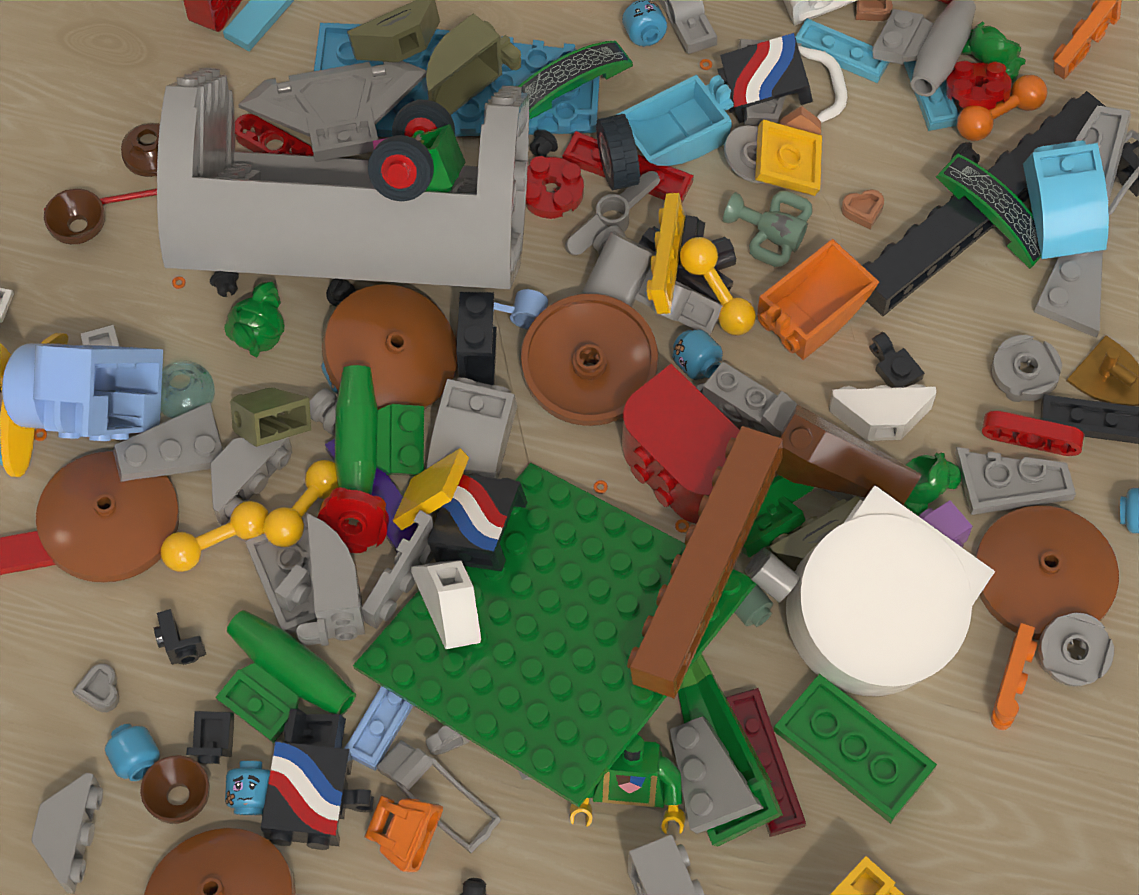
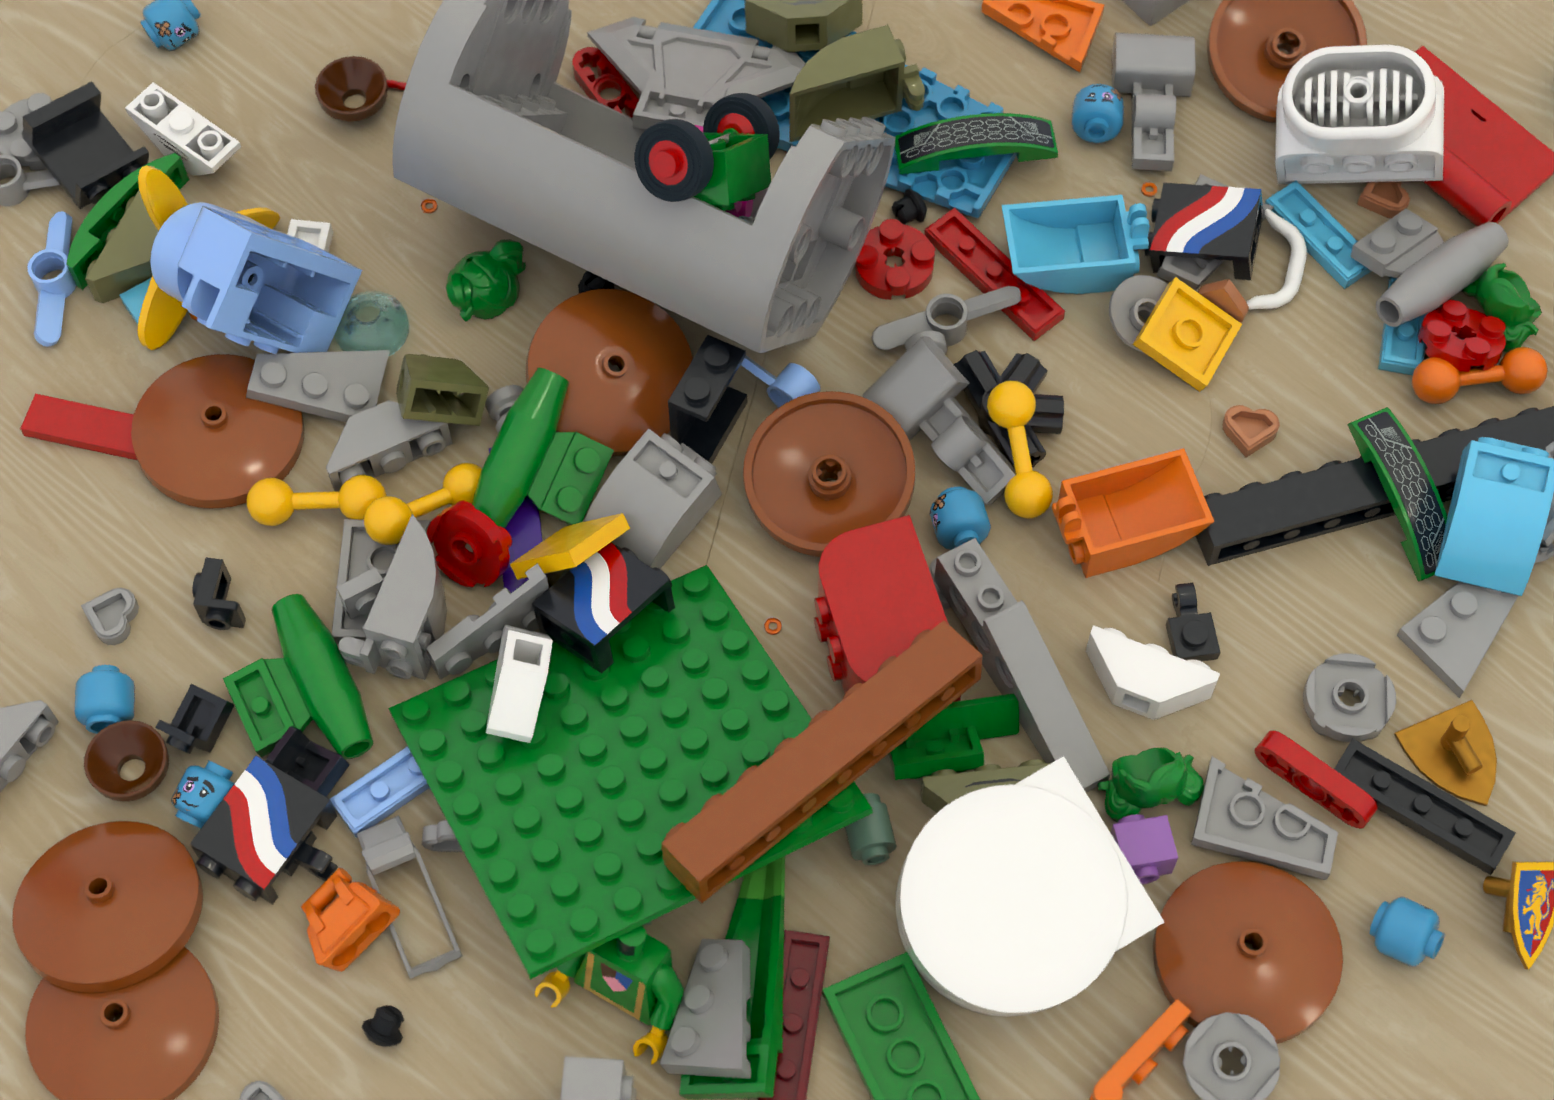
camera: 25 degrees right, 0 degrees up
(225, 282) = (474, 227): black piece -> none
(618, 151) = (980, 247): black wheel -> none
(666, 260) = (973, 387): yellow plate -> none
(771, 574) = (901, 810): light grey beam -> none
(774, 225) = (1129, 407): sand green piece -> none
(836, 461) = (1043, 704): reddish brown wedge -> none
(966, 150) = (1407, 414): black piece -> none

